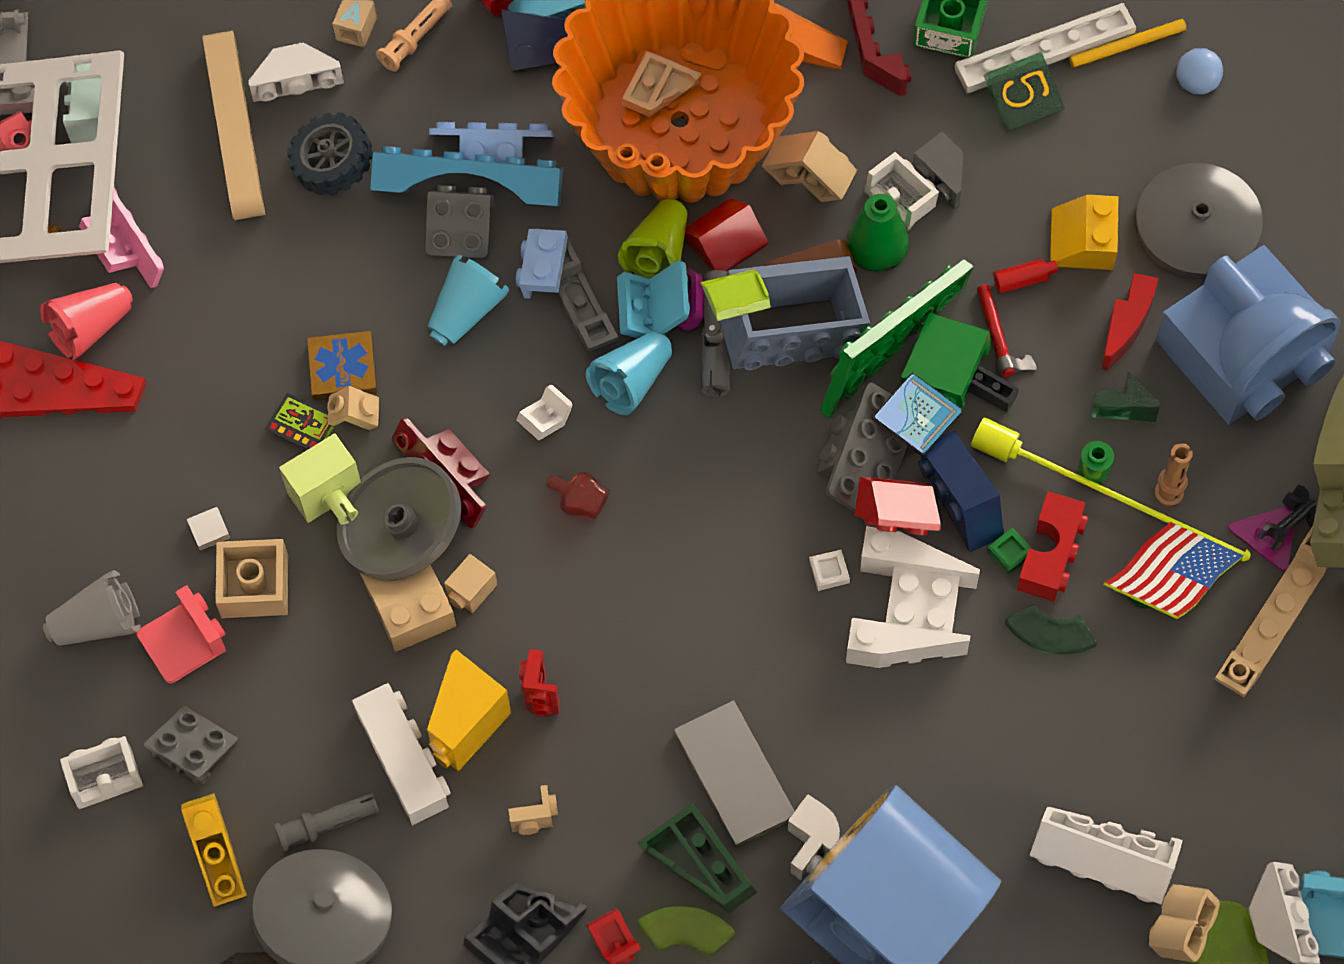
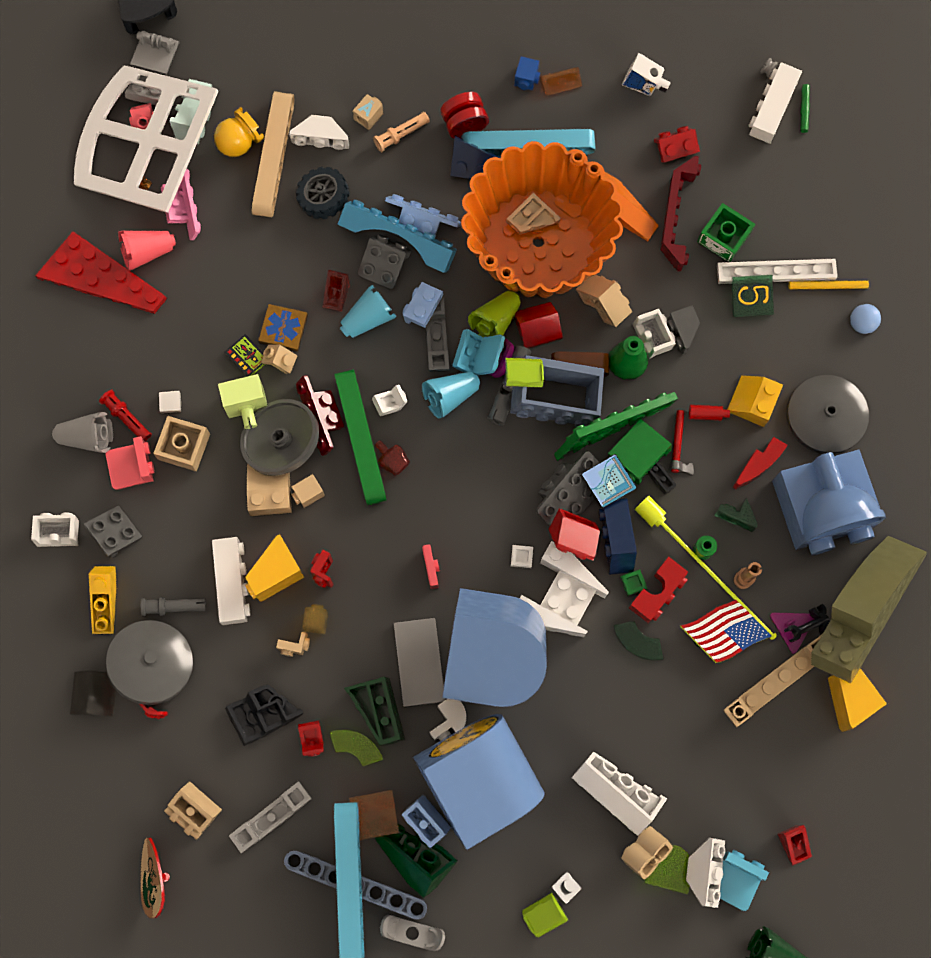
camera: 15 degrees right, 10 degrees up
(135, 565) = (119, 410): none -> red pin
(168, 113) = (236, 134): none -> yellow tile
(403, 284) = (336, 290): none -> clear red slope
(521, 481) = (360, 437): none -> green beam
(554, 763) = (315, 619): none -> clear yellow brick
(699, 628) = (431, 566): none -> coral plate
(845, 699) = (495, 650): none -> medium blue brick

